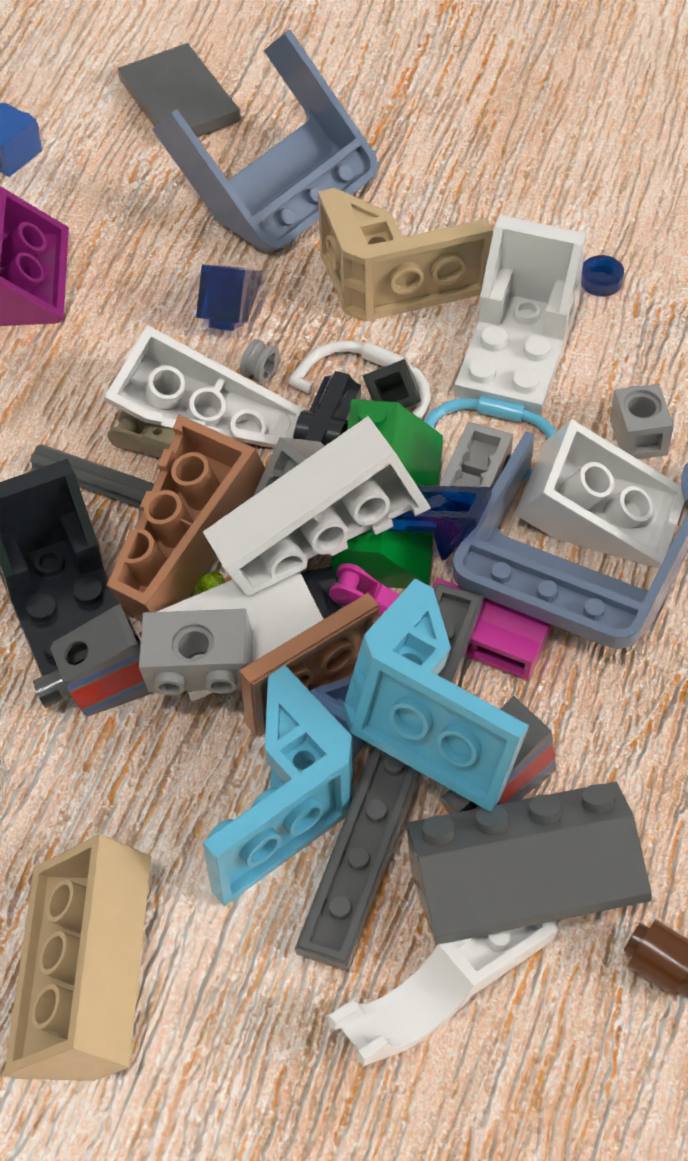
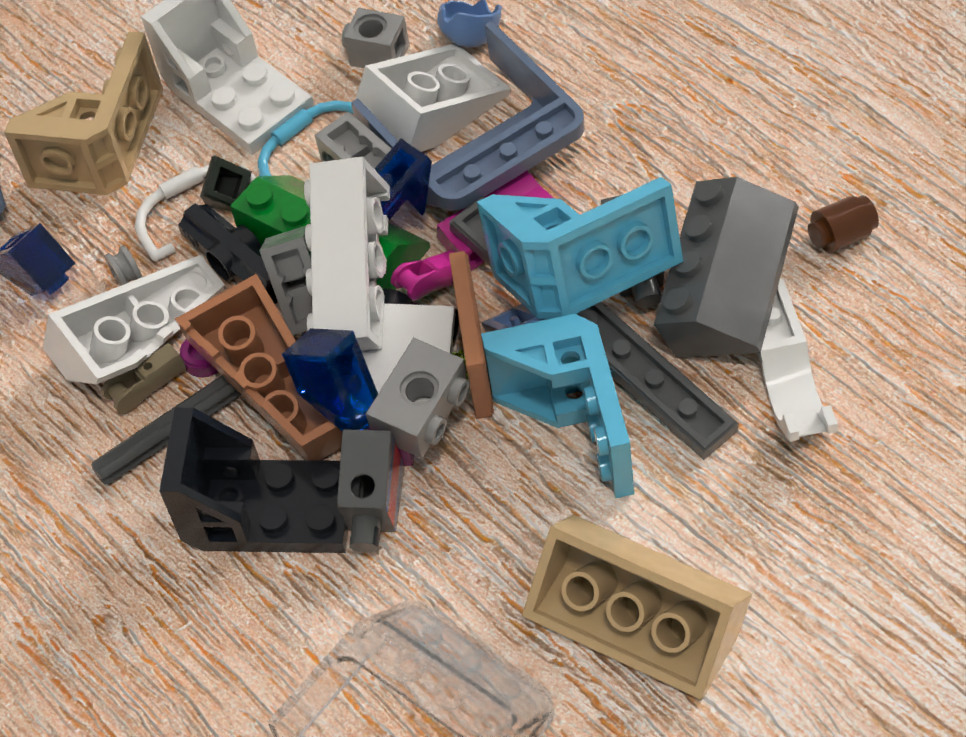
camera: 55 degrees left, 0 degrees up
(170, 563) = (332, 376): none -> clear blue slope

